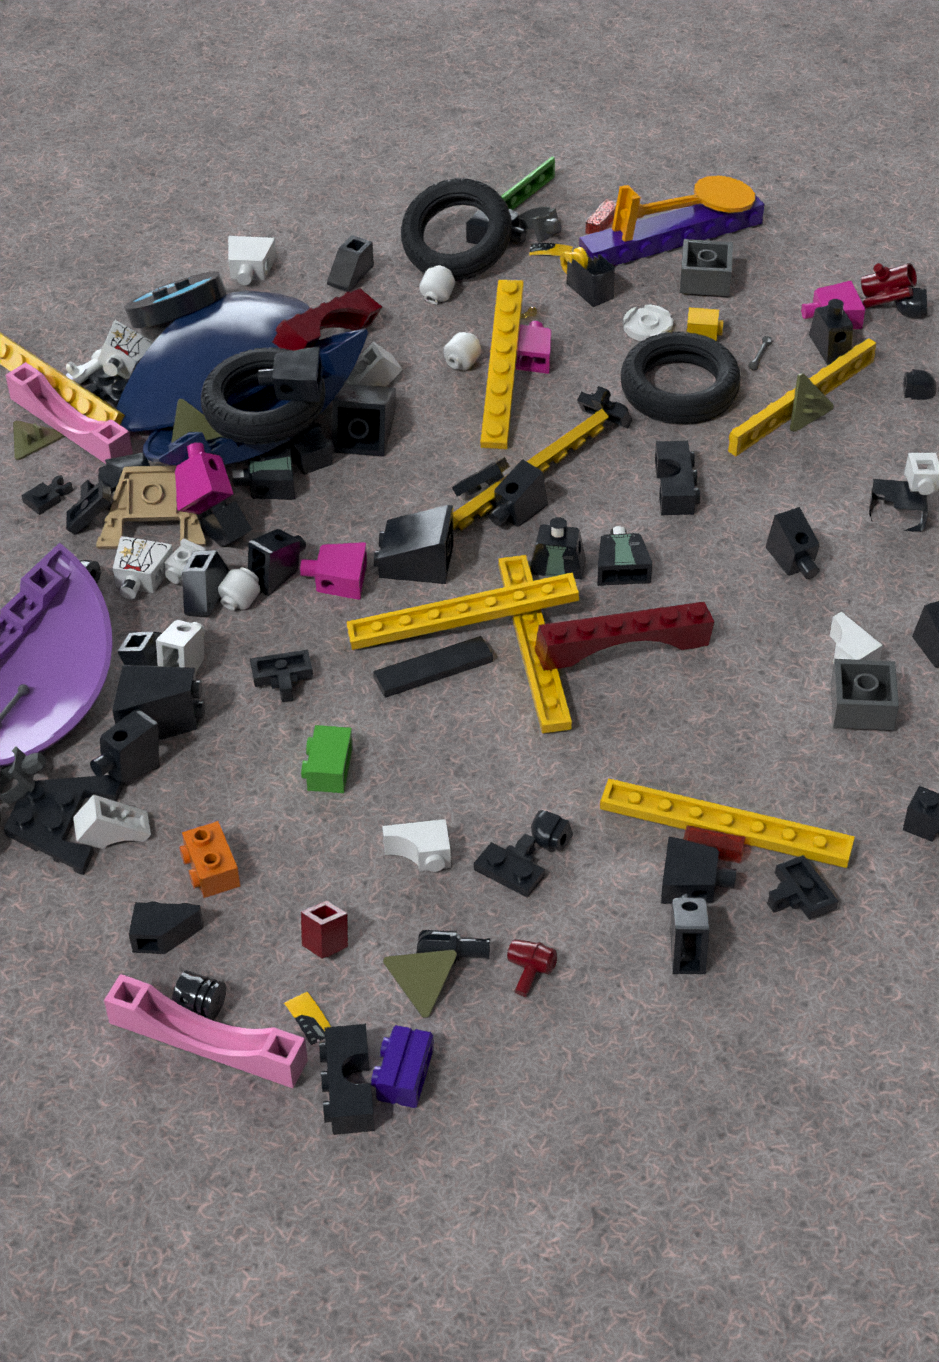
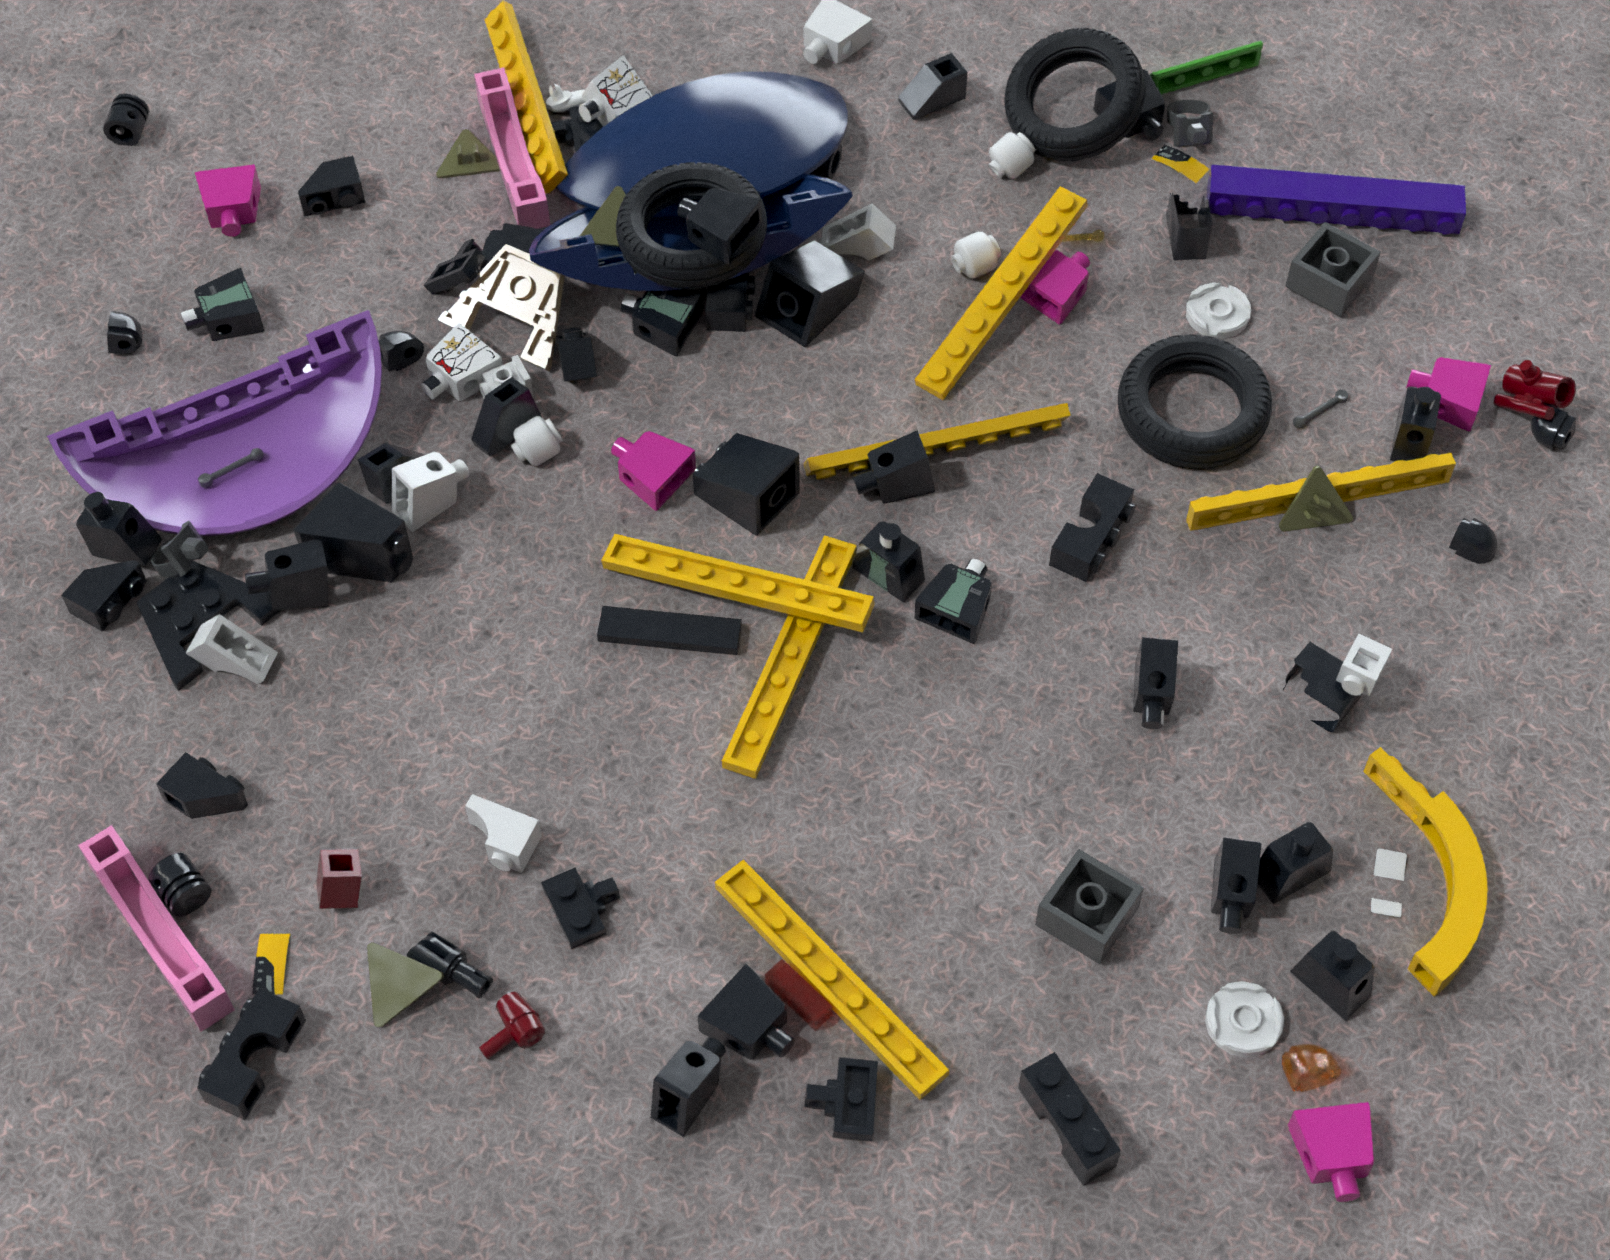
camera: 30 degrees right, 10 degrees up
(46, 496) = (431, 235): black plate -> none
(175, 299) = (707, 55): black brick -> none
(201, 481) = (564, 298): dark pink torso -> none
(210, 860) = (293, 740): orange brick -> none
(274, 558) = (592, 422): black torso -> none
(282, 671) = (513, 559): black hinge -> none
(328, 759) = (484, 686): bright green brick -> none
(351, 311) = (886, 151): dark red arch -> none
(403, 1066) = (311, 1070): dark purple brick -> none
(490, 474) = (884, 427): black hinge -> none
(551, 831) = (640, 890): black piece -> none
(571, 641) = (945, 714): dark red arch -> none
(578, 254) = (1190, 190): yellow wheel -> none
(600, 400) = (1072, 392): black hinge -> none
(601, 217) = (1268, 146): clear red piece -> none
(704, 322) = (1274, 344): yellow brick -> none
(714, 192) = (1411, 175): light orange piece -> none
(852, 640) = (1127, 844): white arch -> none

